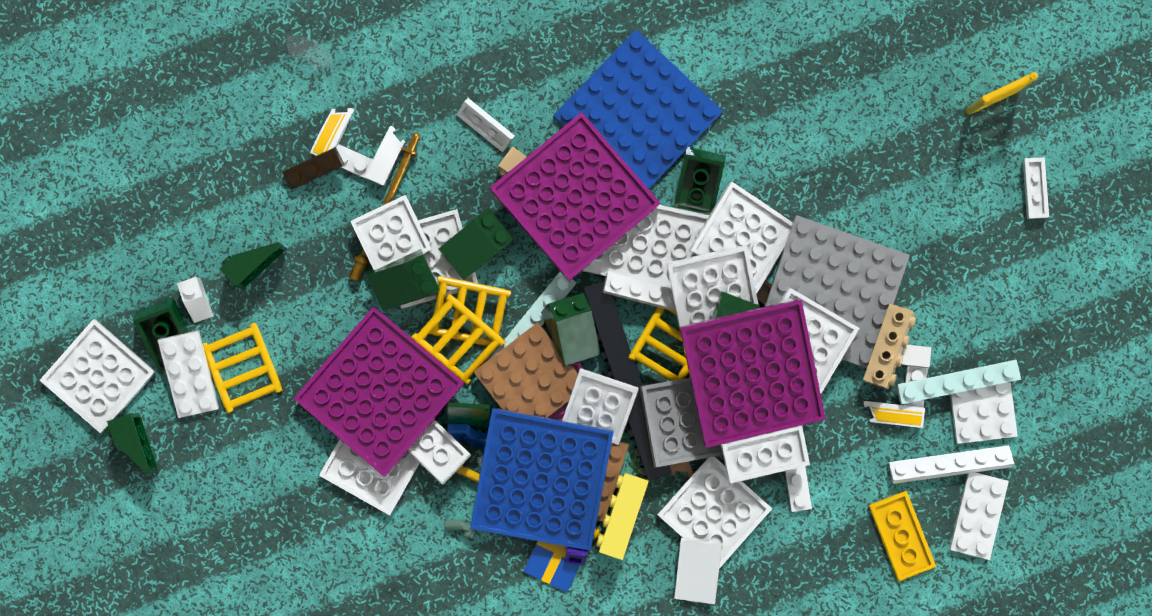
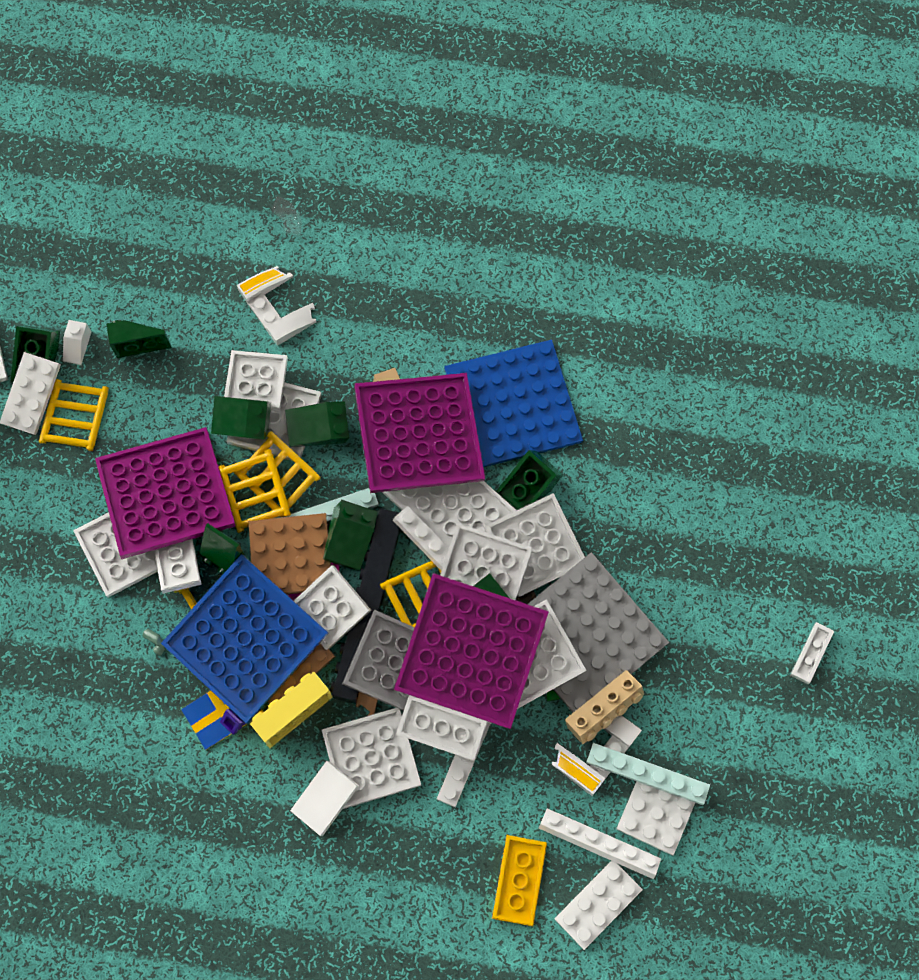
camera: 40 degrees right, 15 degrees down
(313, 168) = (231, 298): dark brown plate -> none
(361, 260) = (219, 389): pearl gold bar -> none
(468, 434) = (208, 564): blue tile -> none
(485, 125) = (385, 342): white plate -> none
(1001, 93) = (823, 551): yellow bar -> none

